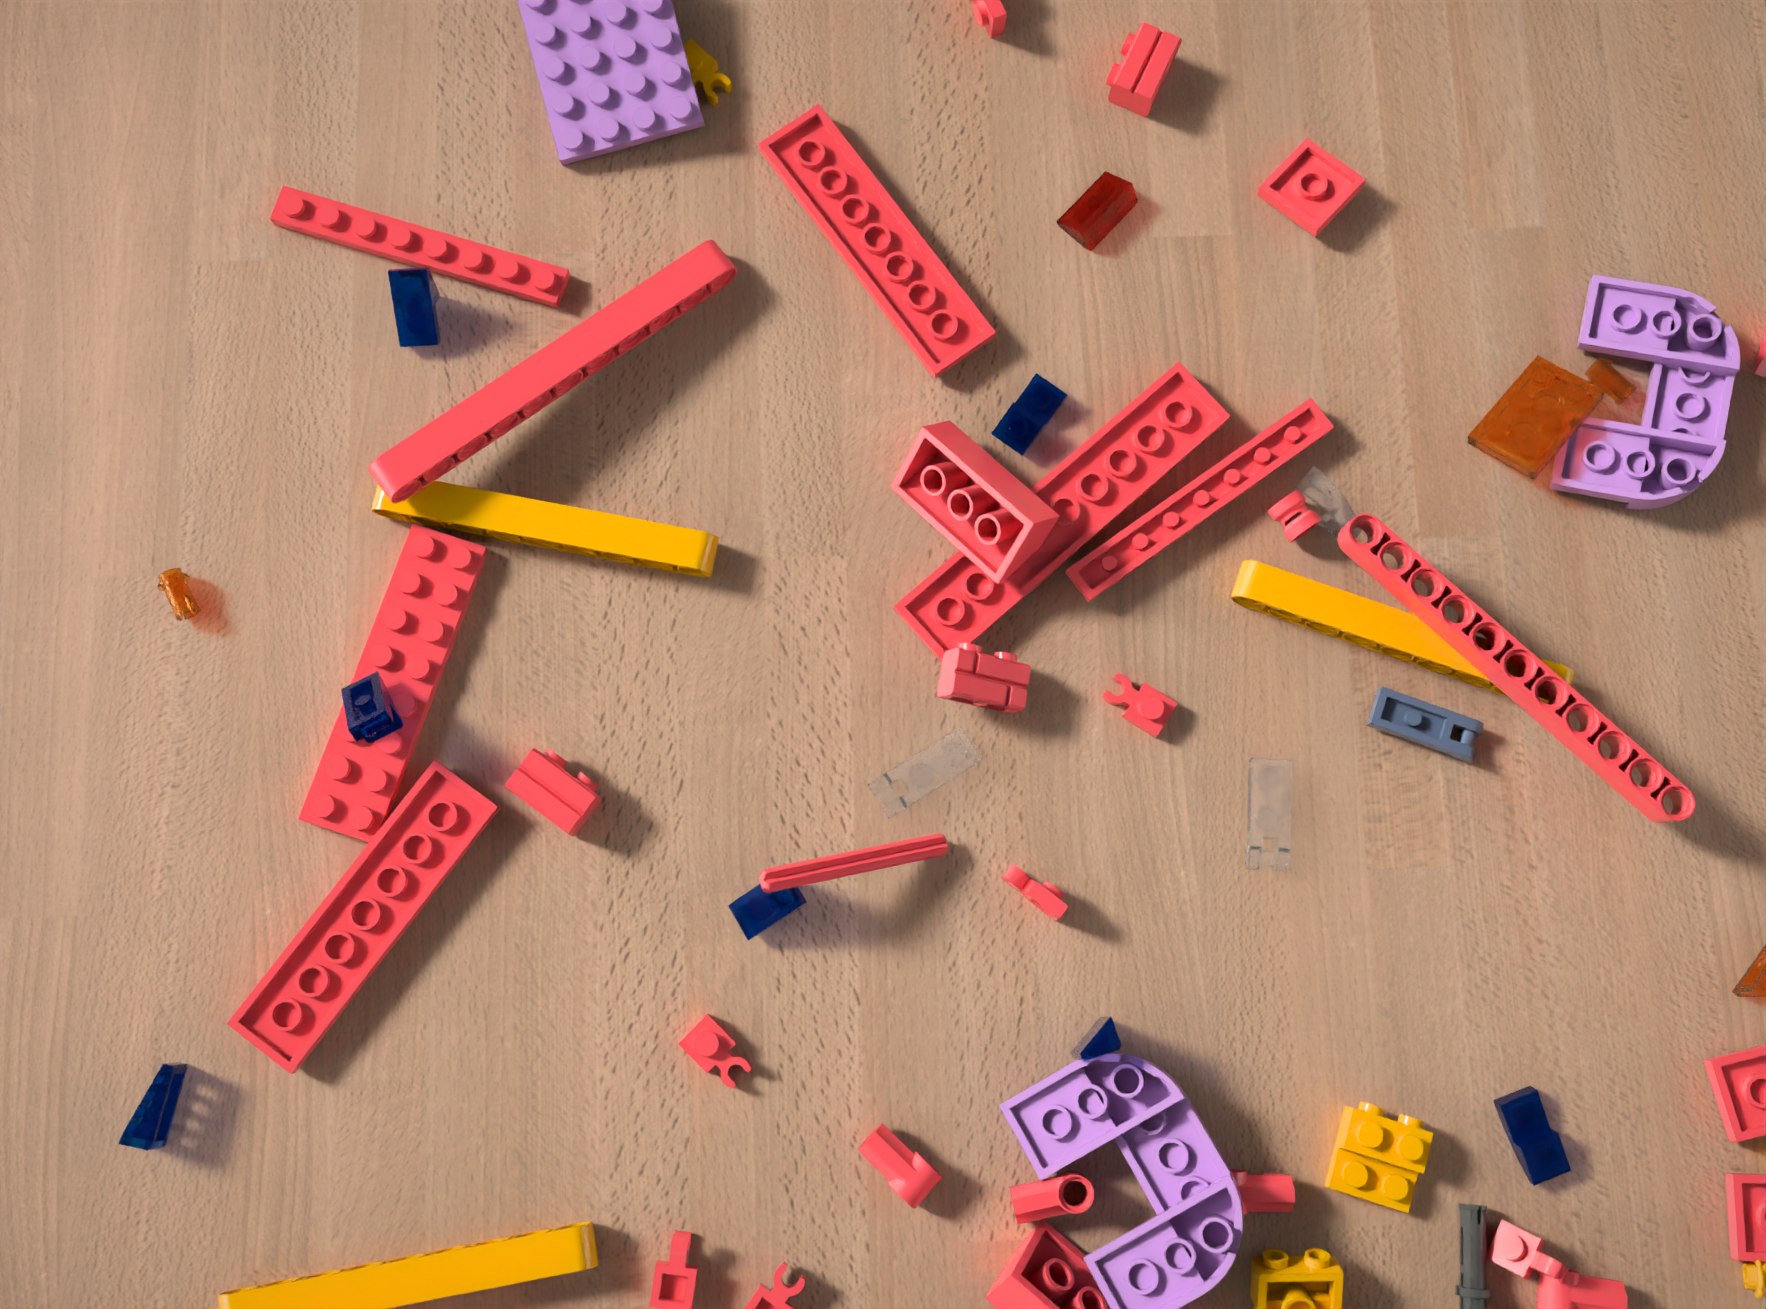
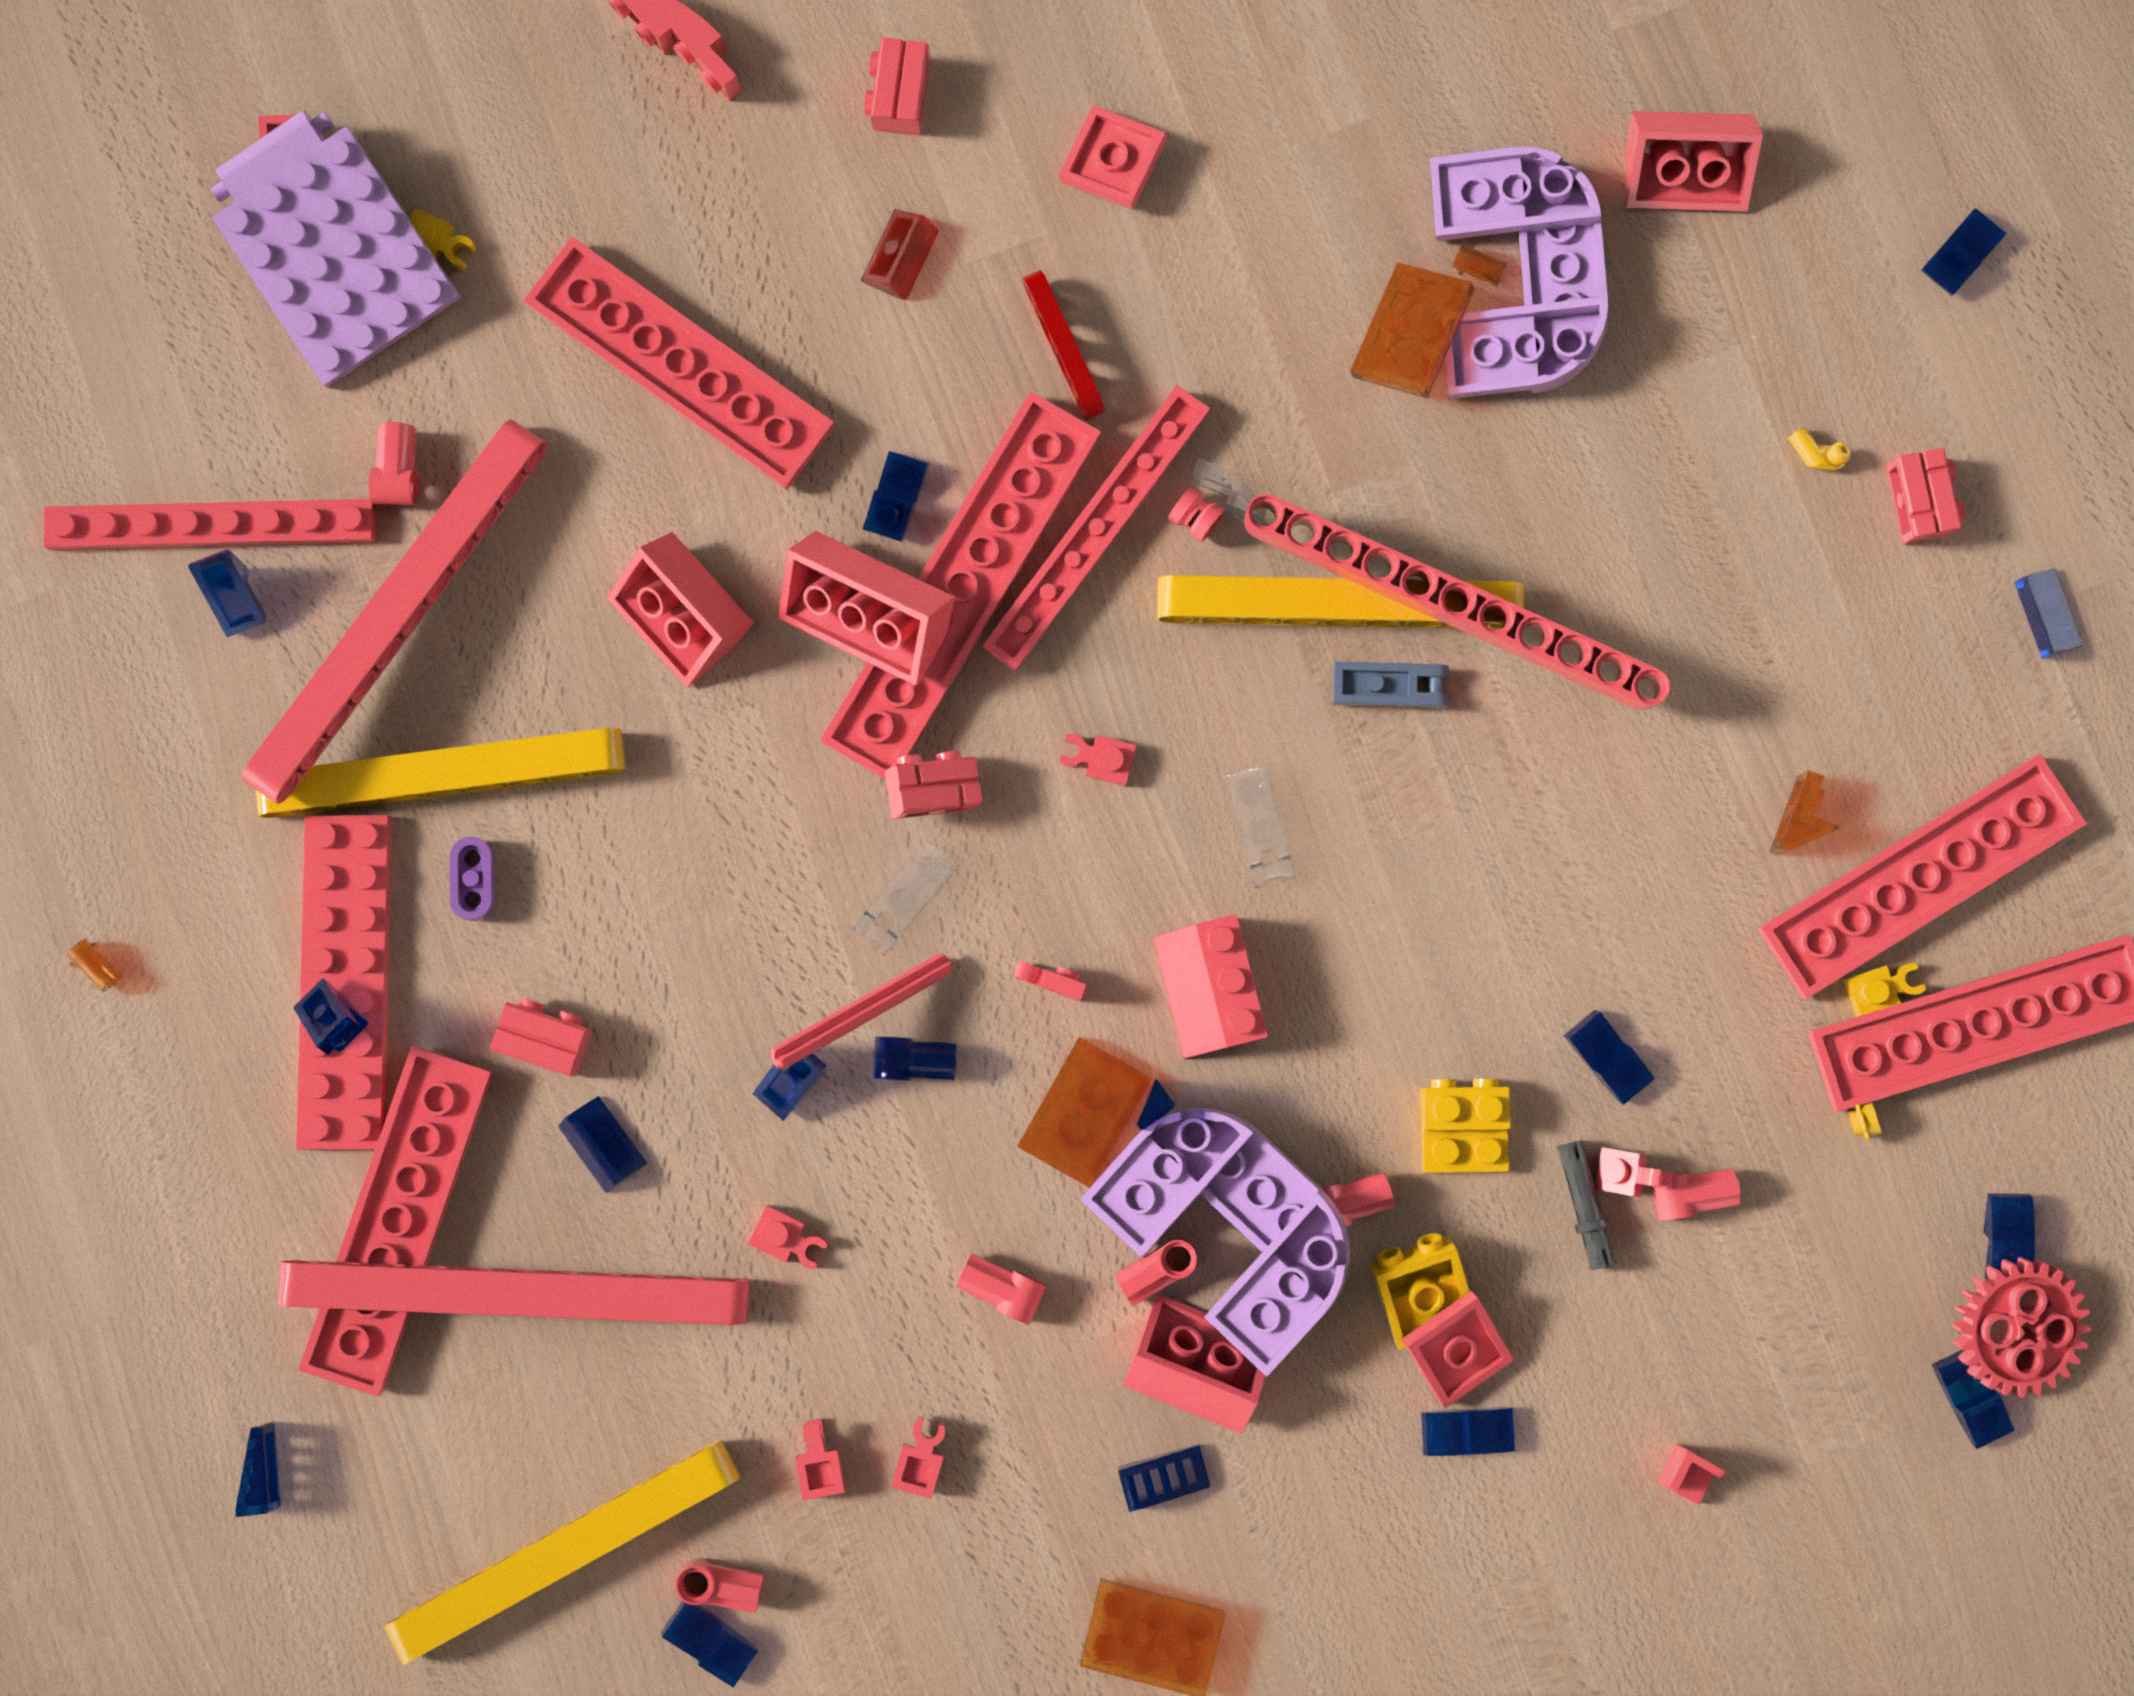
camera: 10 degrees left, 5 degrees up
(448, 1017) = (513, 1292): none -> coral beam
(542, 629) = (470, 880): none -> medium lavender plate
(575, 906) = (602, 1144): none -> clear blue slope
(595, 256) = (394, 477): none -> coral piece
(805, 449) = (678, 608): none -> coral slope
(877, 920) = (903, 1059): none -> clear blue piece
(1027, 1024) = (1084, 1112): none -> clear orange plate
(1180, 946) = (1210, 986): none -> coral slope
(1219, 332) = (1063, 345): none -> red beam

